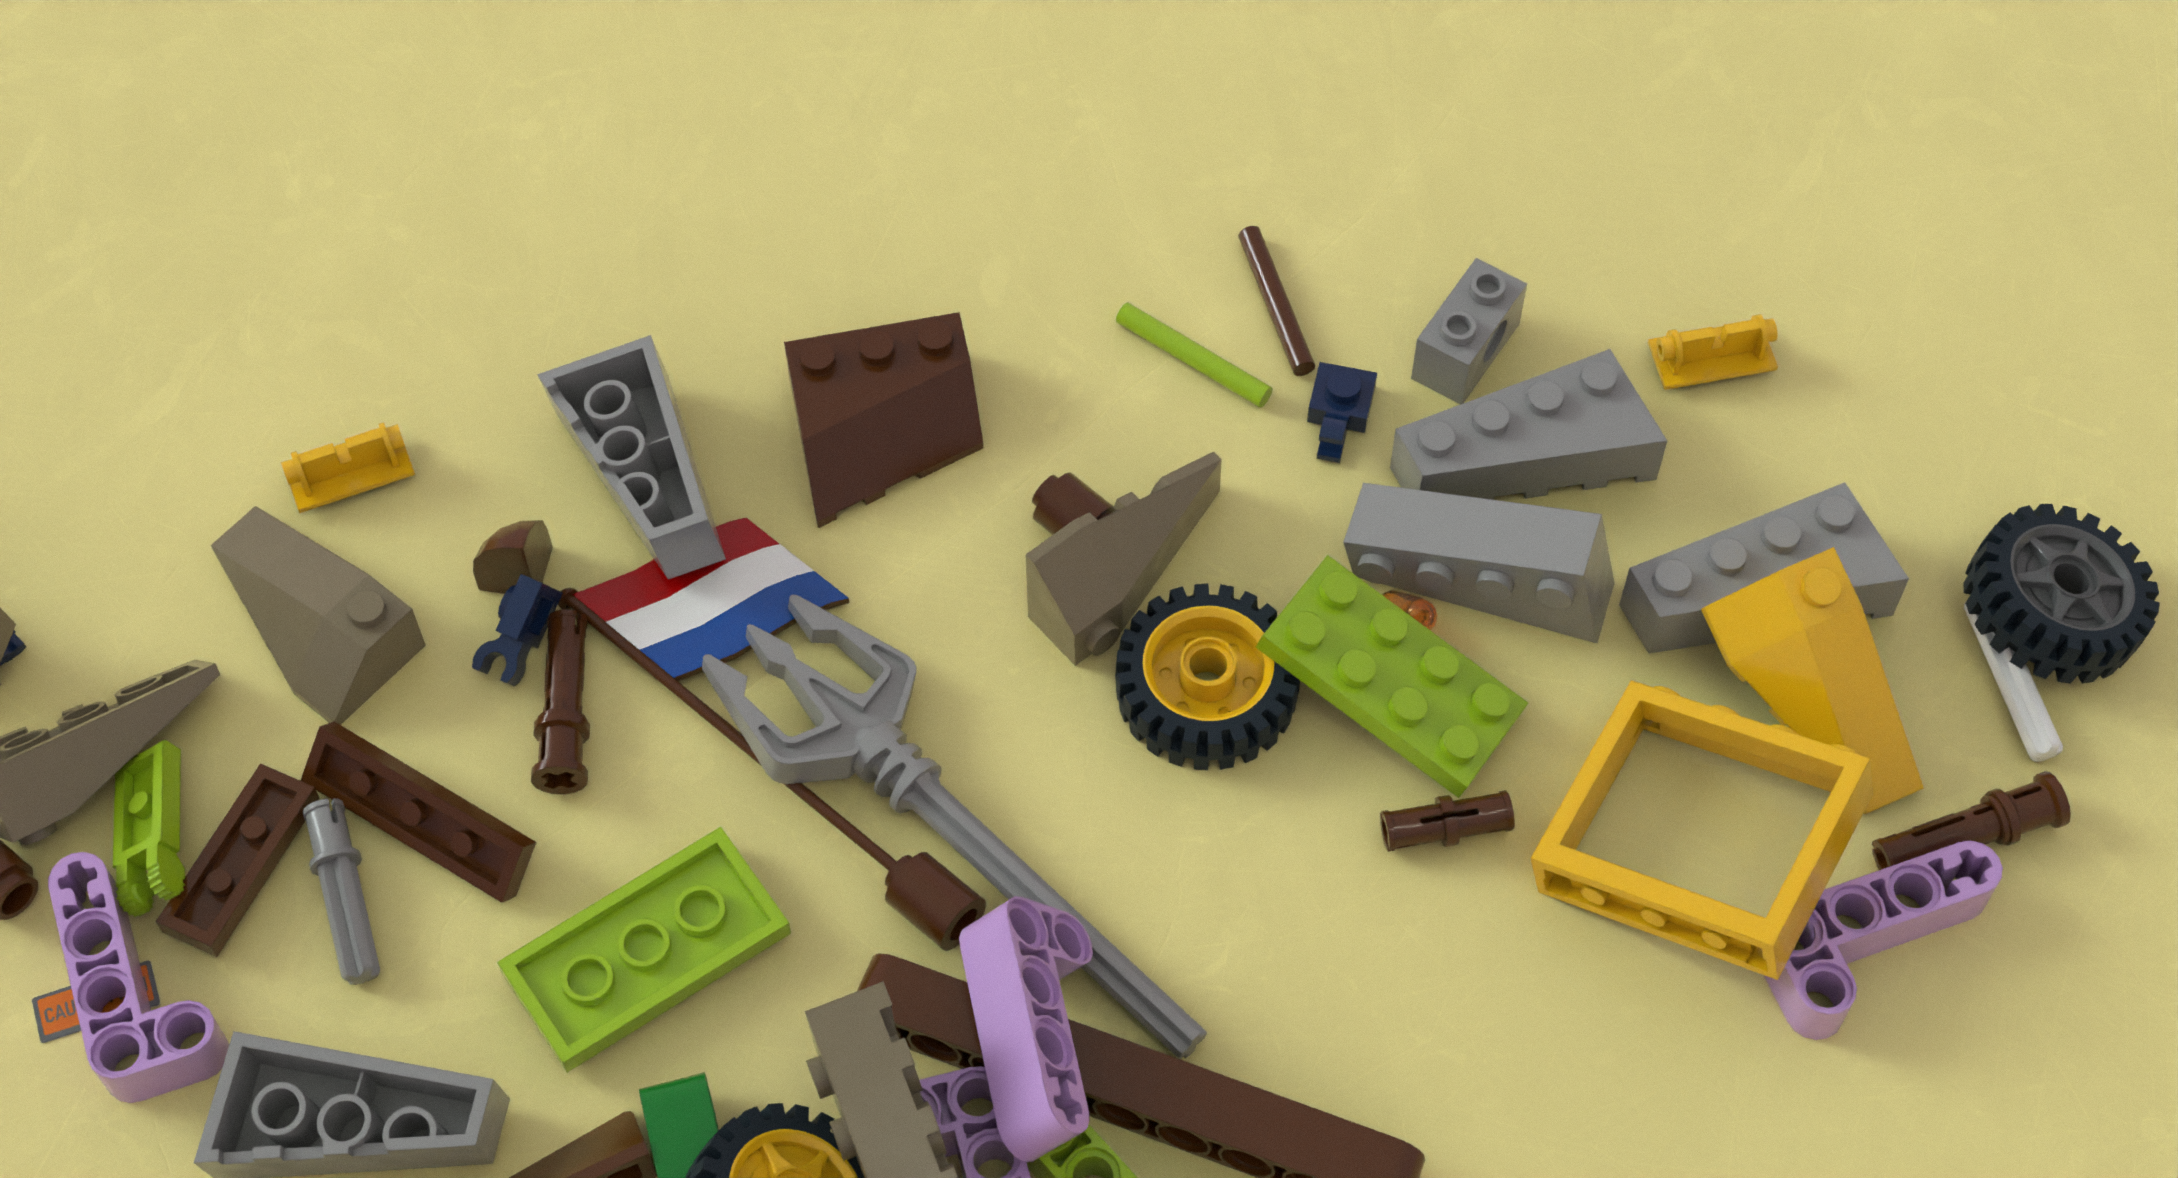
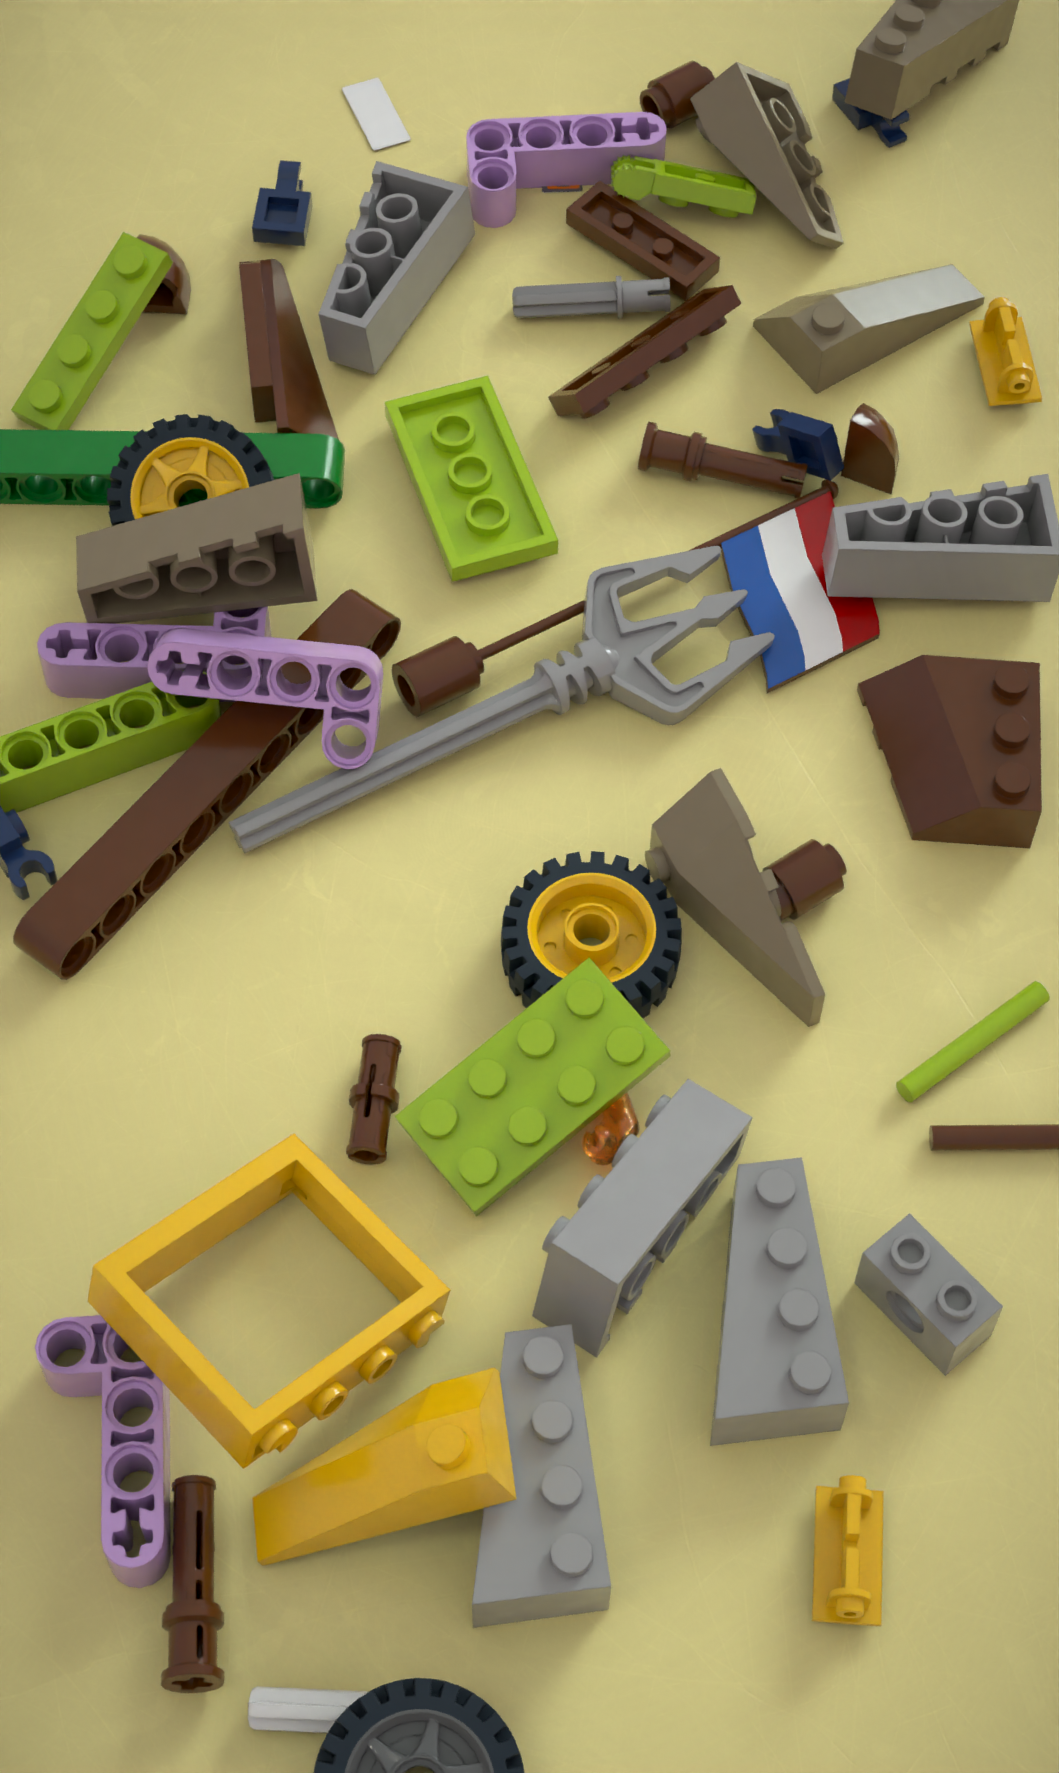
camera: 105 degrees right, 0 degrees up
(1340, 403) = (878, 1158): dark blue plate -> none

